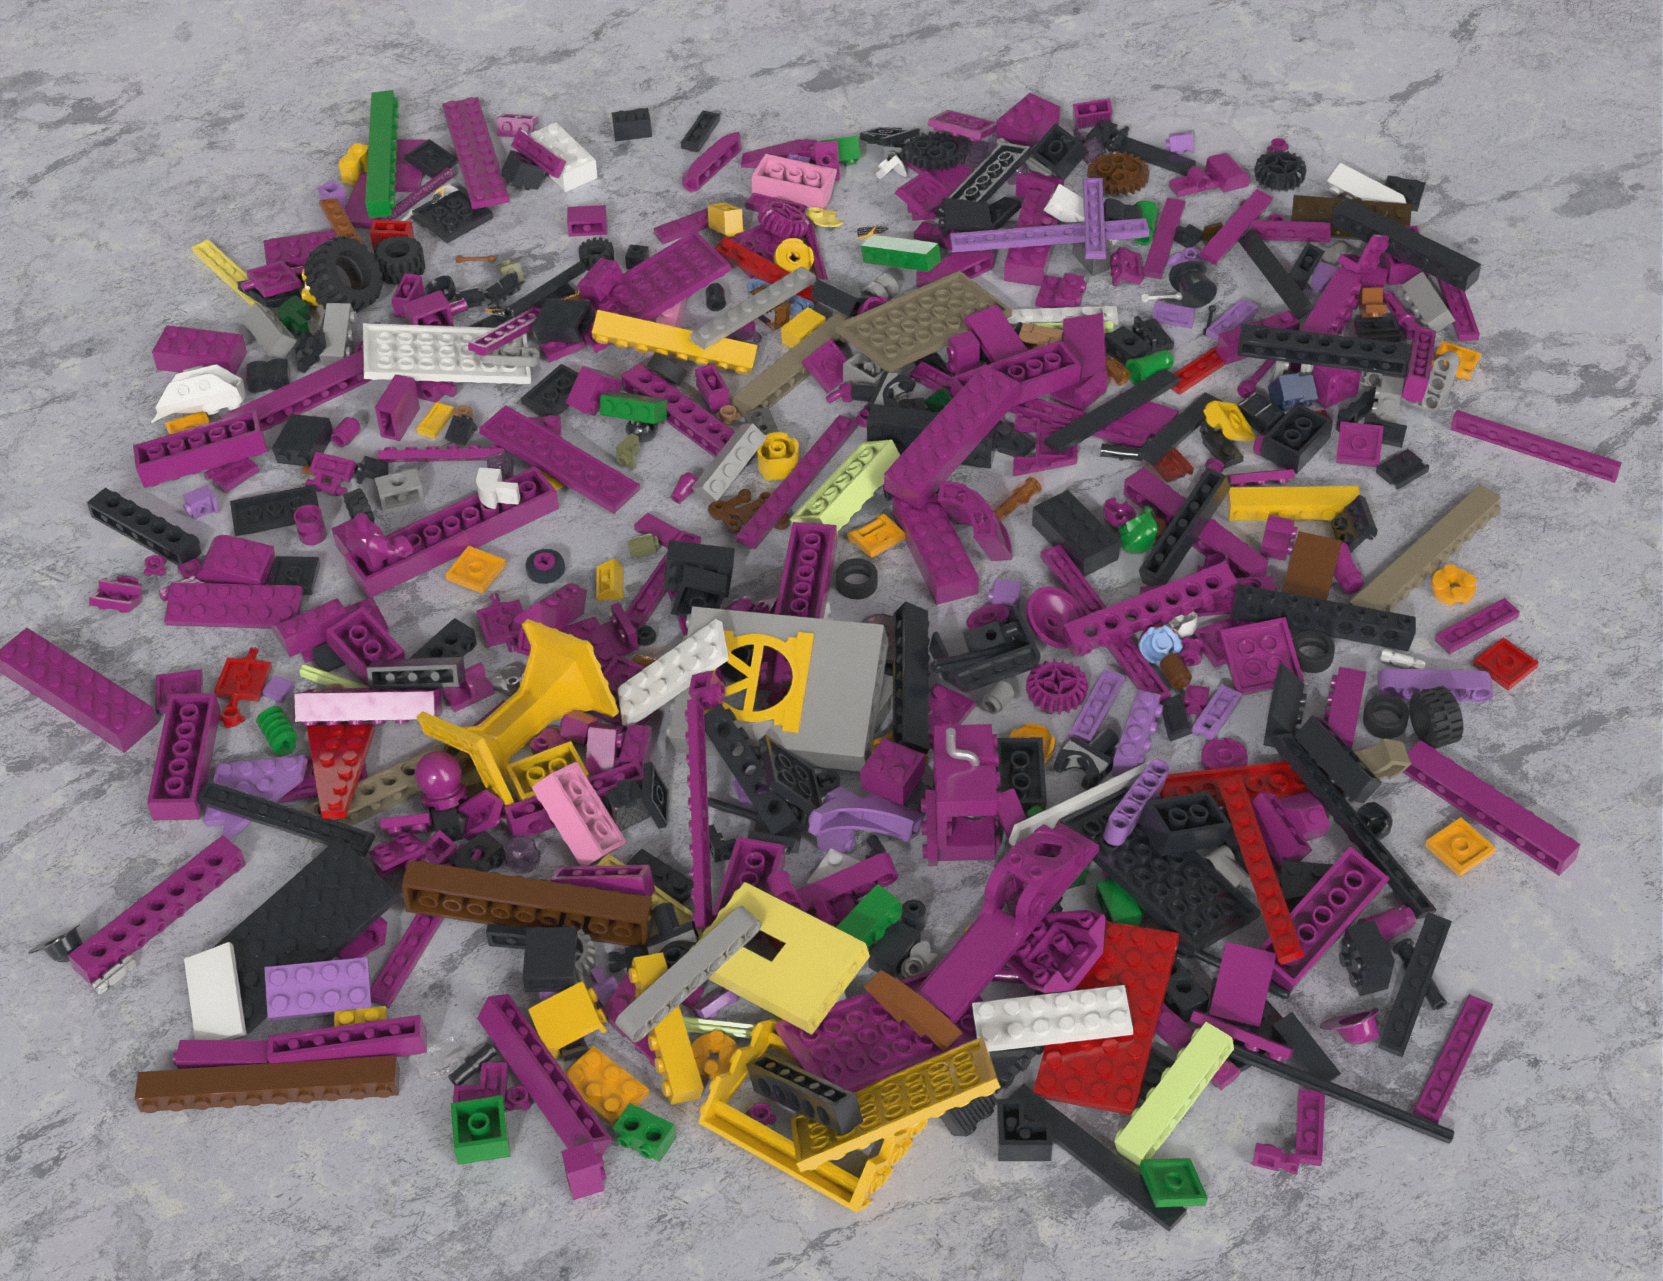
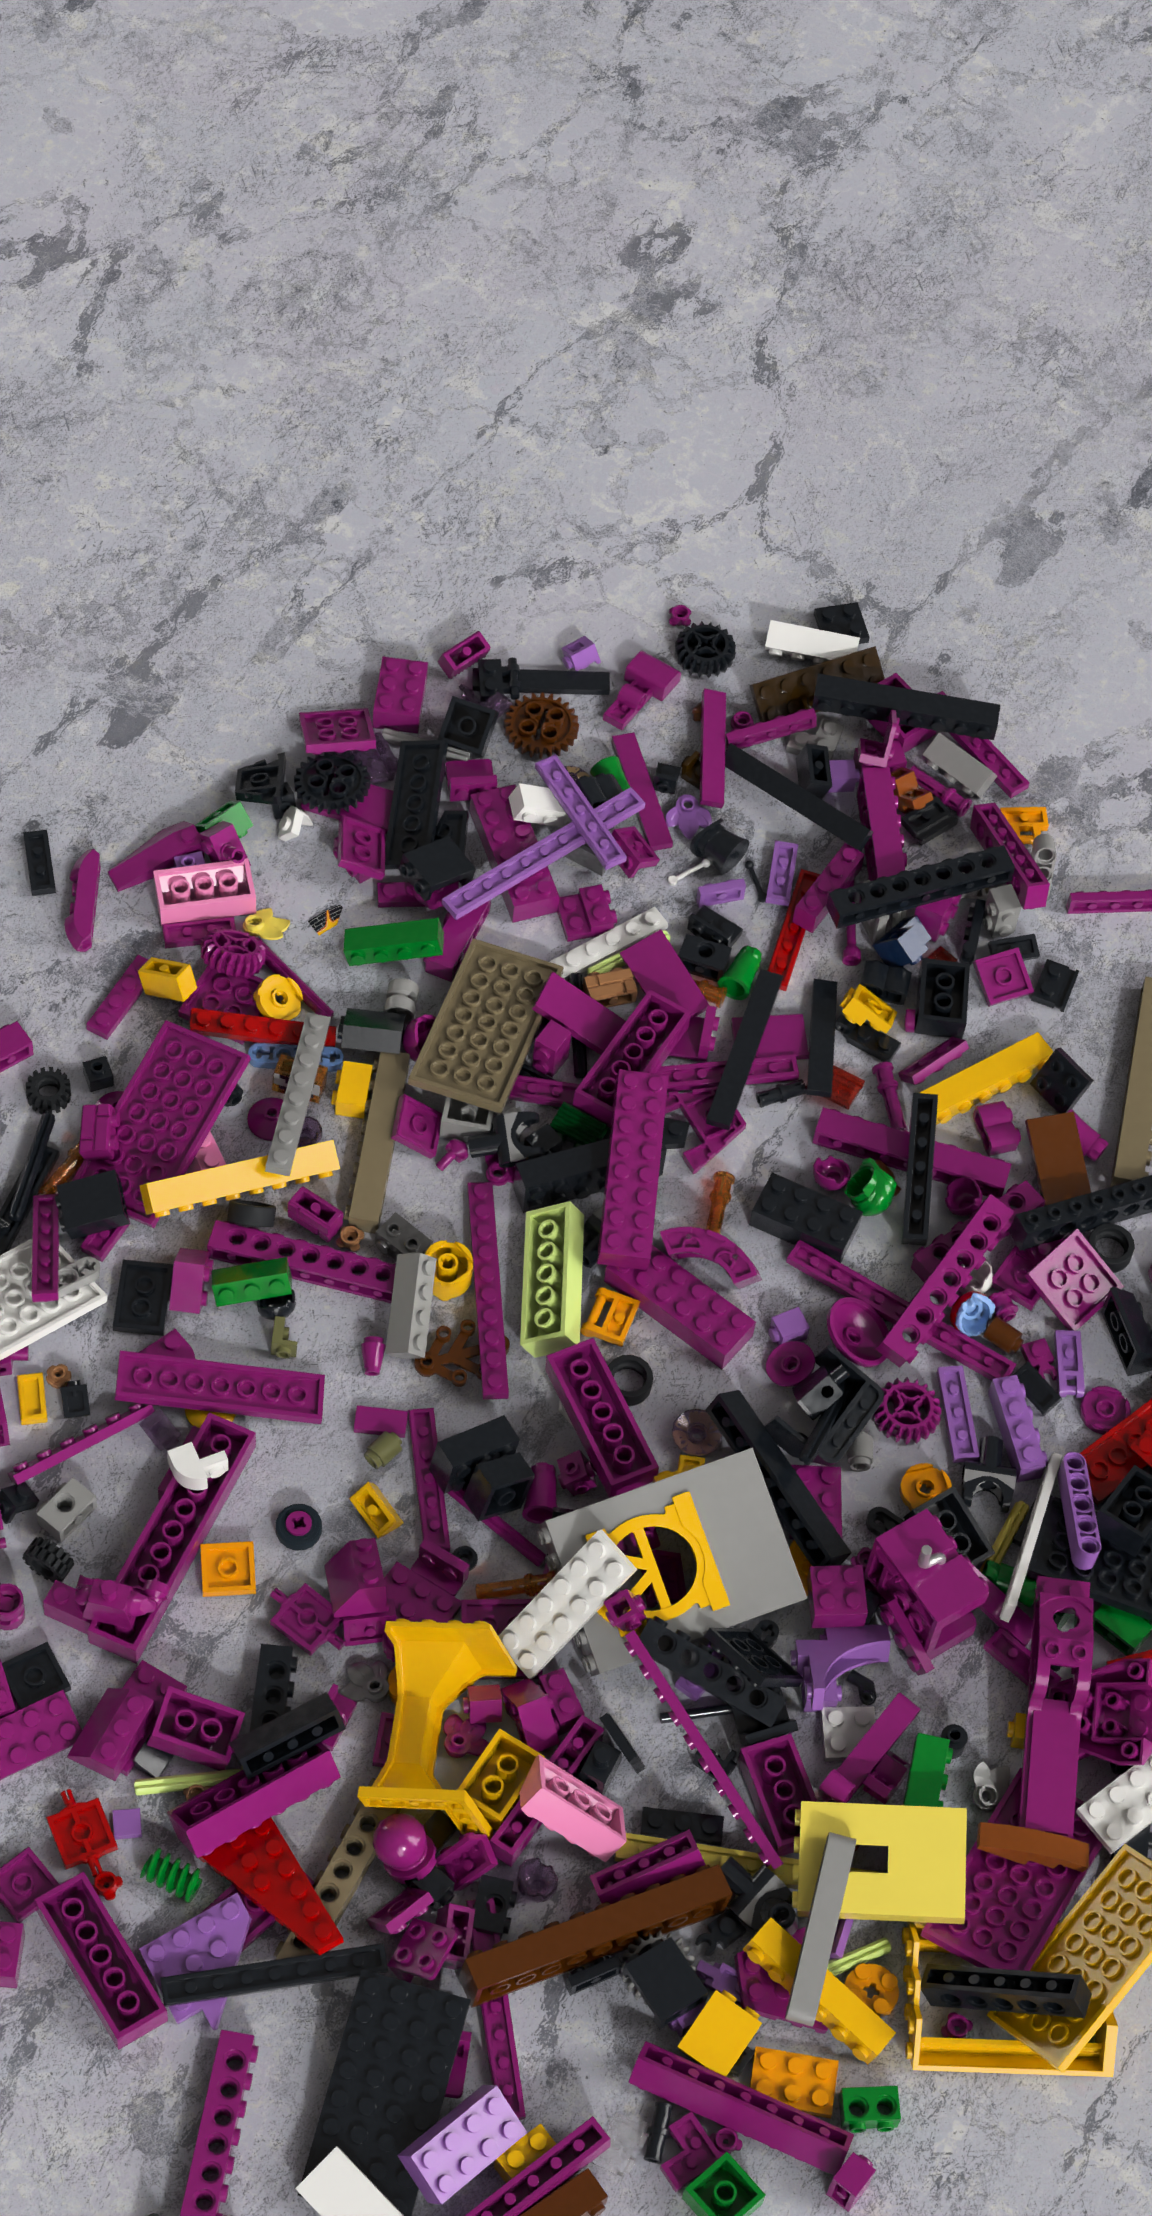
camera: 40 degrees left, 10 degrees up
(893, 948) = (960, 1784): black brick -> none

